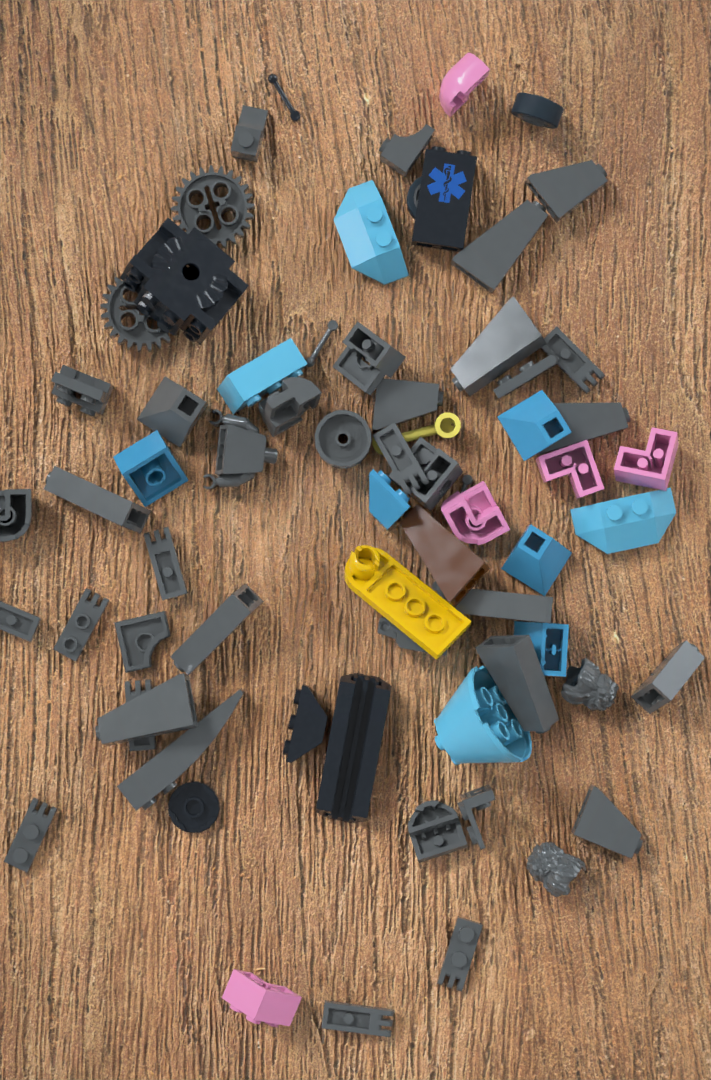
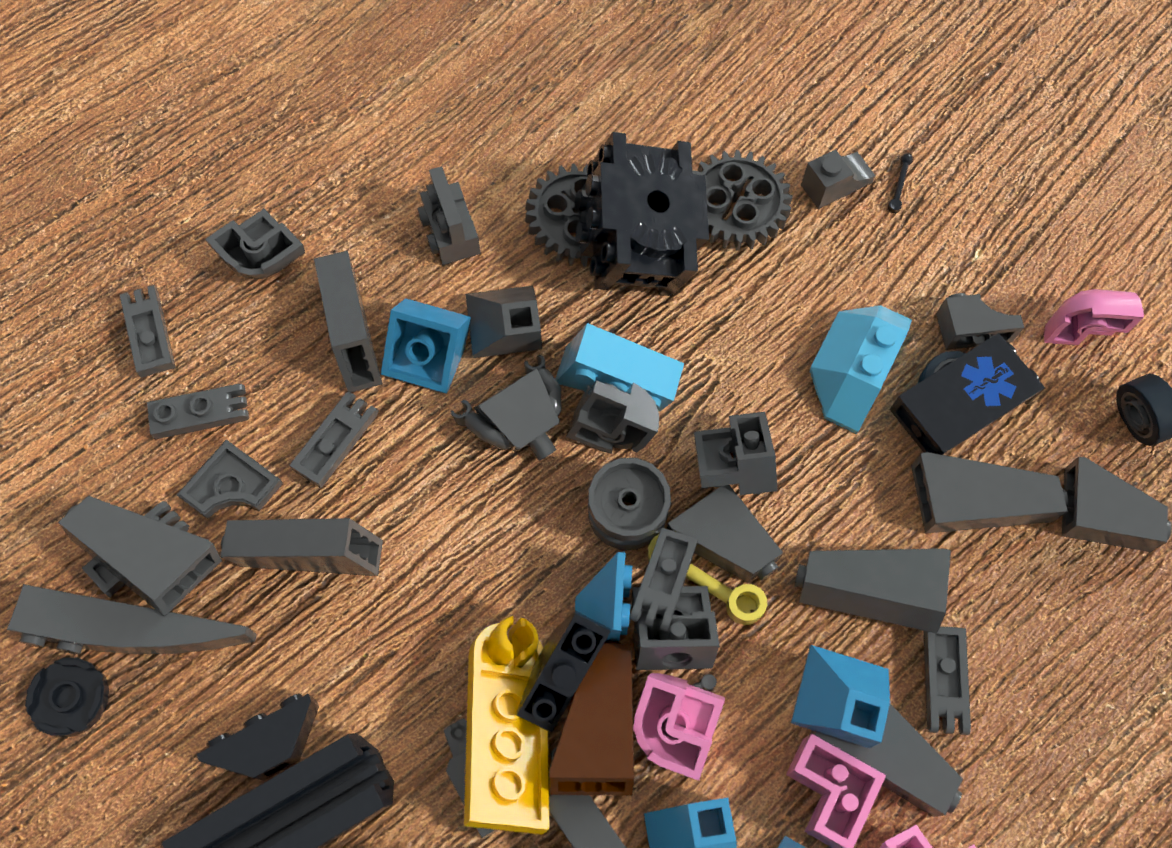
camera: 45 degrees right, 20 degrees down
(332, 326) = (734, 402): dark grey hinge -> none
(400, 551) = (561, 669): none -> black slope
(528, 372) = (884, 640): dark grey hinge -> none

